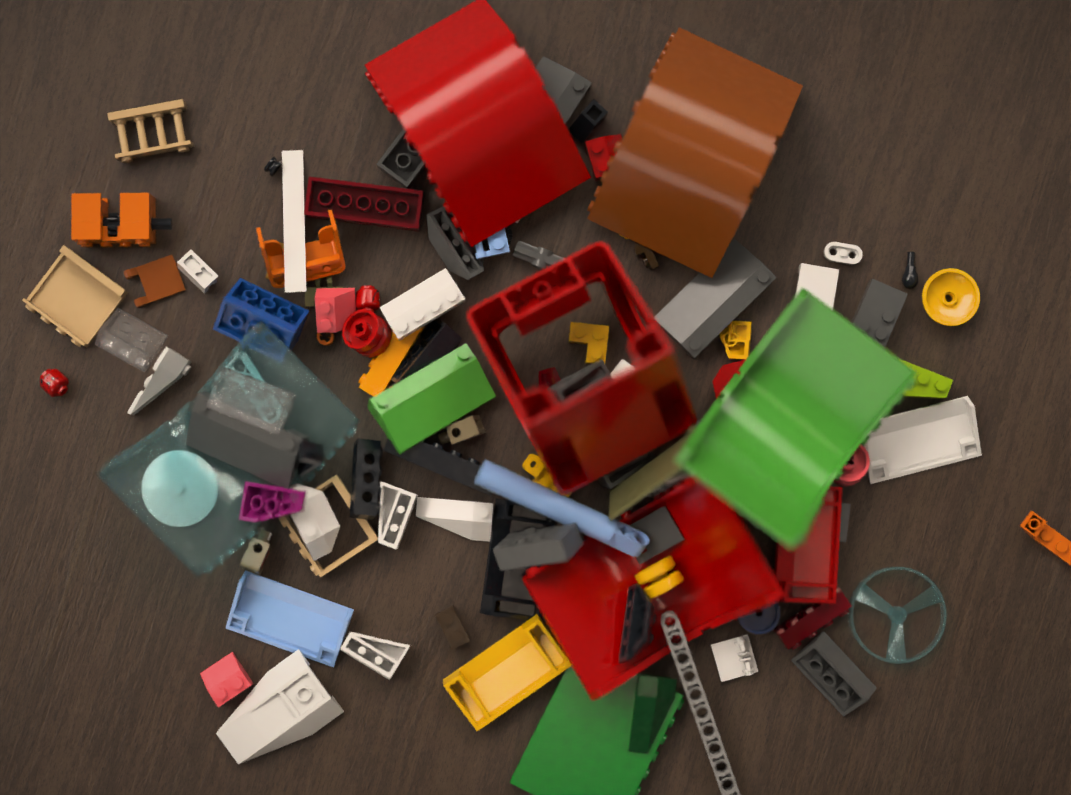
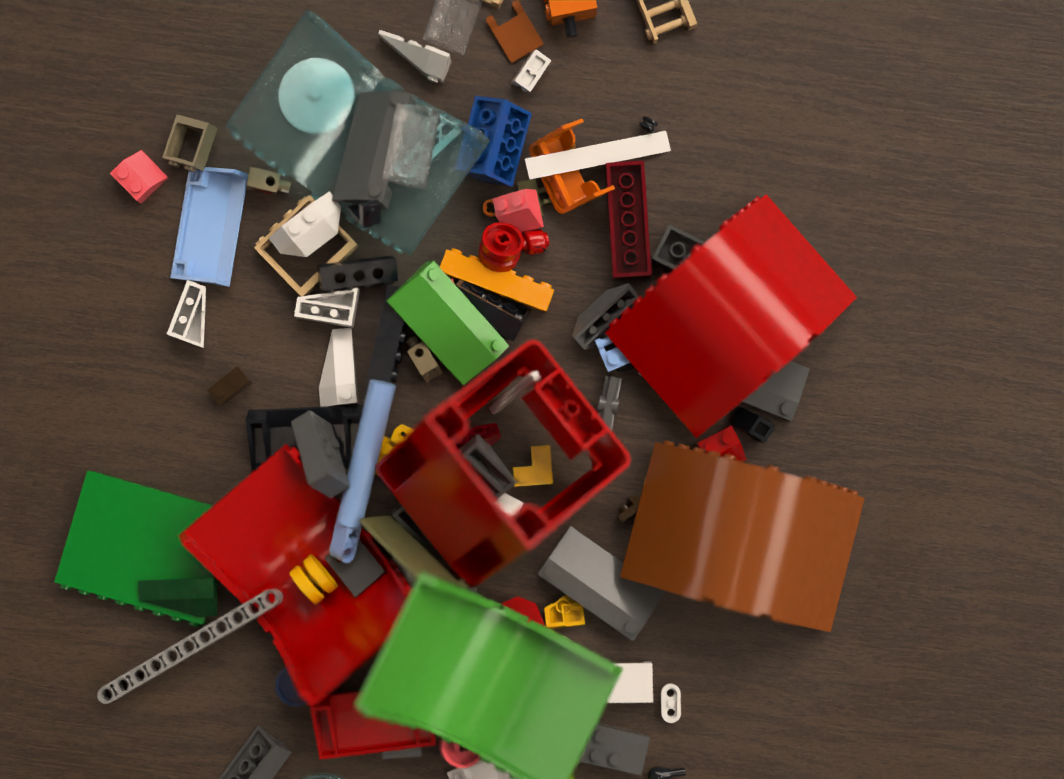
camera: 80 degrees right, 0 degrees up
(197, 636) = (176, 140): none -> dark tan window
(267, 502) = (316, 183): magenta wedge -> none
(279, 711) = (118, 233): white wedge -> none
(422, 304) = (539, 295): white slope -> none
(506, 672) = (193, 446): yellow slope -> none
(513, 345) = (514, 392): none -> white axle
(637, 624) = (262, 566): black wedge -> none
(734, 658) = (250, 669): white hinge -> none
(810, 619) = (300, 737): dark red wedge -> none

